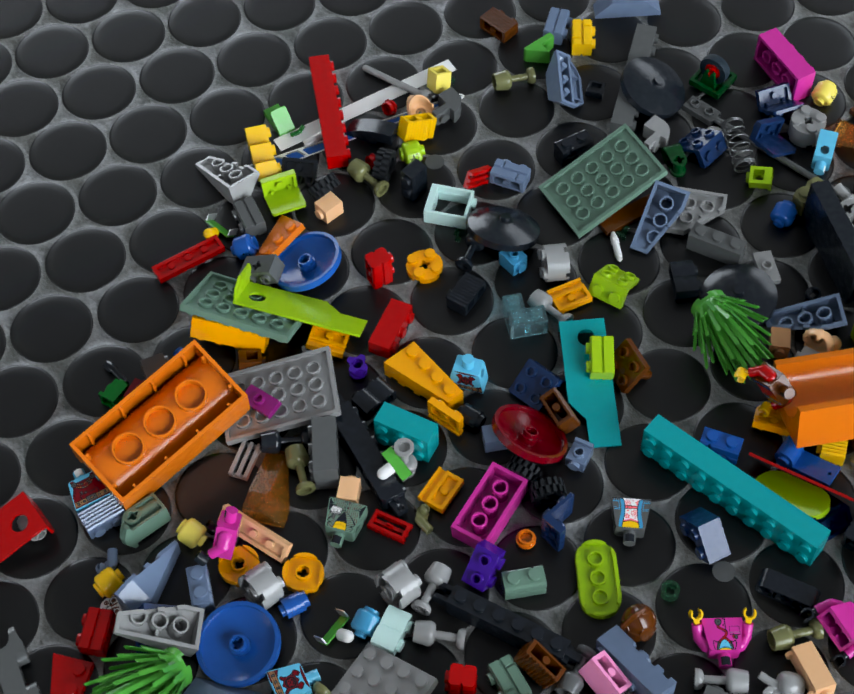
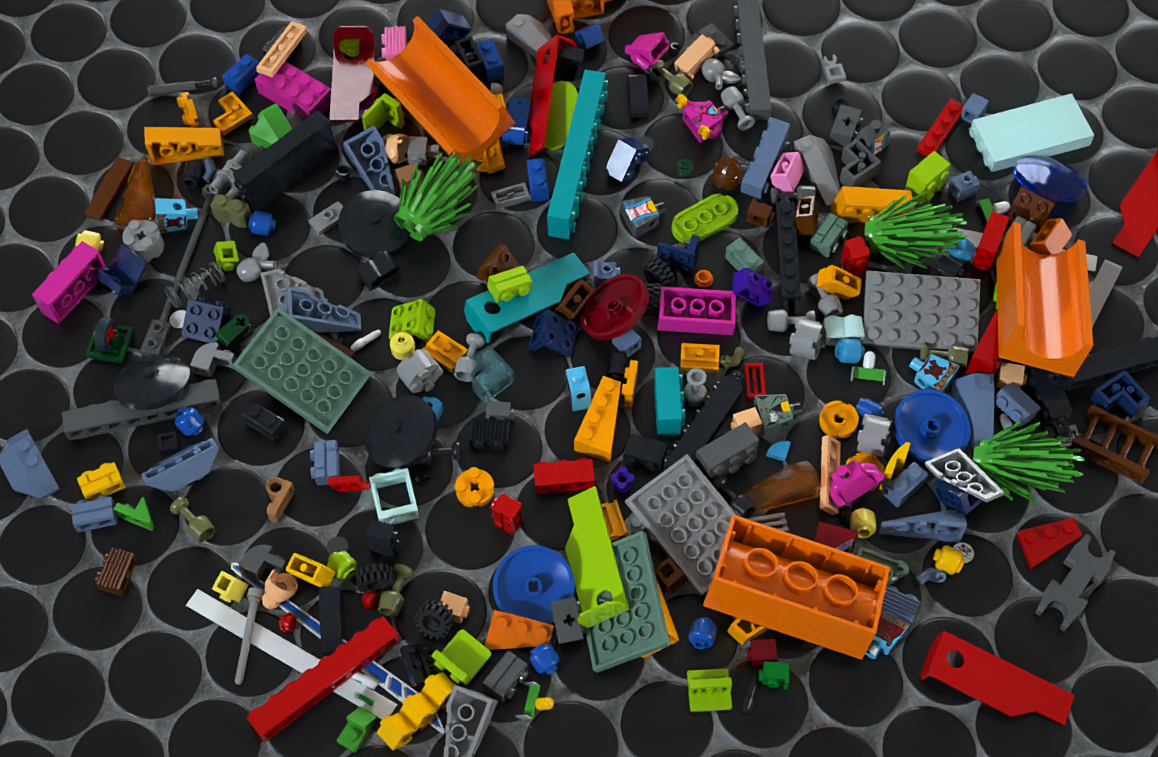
camera: 120 degrees left, 5 degrees up
(96, 632) = (994, 542): red brick -> none
(140, 342) = (709, 690): none -> lime bracket
(152, 364) = (731, 648): dark grey brick -> none
(188, 259) = (587, 707): red plate -> none
(188, 489) = (836, 537): none -> dark red slope
(218, 581) = (896, 462): none -> yellow slope
(262, 402) = (711, 532): magenta plate -> none
(297, 459) = (743, 478): olive piece -> none
(306, 508) = (779, 450): none -> dark azure tile
(394, 465) = (706, 390): bright green piece -> none
(441, 648) = (839, 282): none -> light orange brick
(481, 308) = (500, 410): none -> dark grey brick
(500, 137) = (280, 499): none -> medium nougat plate
(574, 627) = (760, 213): none -> reddish brown brick
(590, 263) = (402, 345): none -> light yellow head
(602, 101) = (189, 421): none -> blue head
(716, 244) = (326, 259): dark grey brick -> none
(725, 416) = (511, 197): none -> light grey tile
(739, 194) = (251, 267): none -> light grey piece
(766, 136) = (175, 261): dark blue bracket -> none
(772, 384) = (477, 141): torso -> none

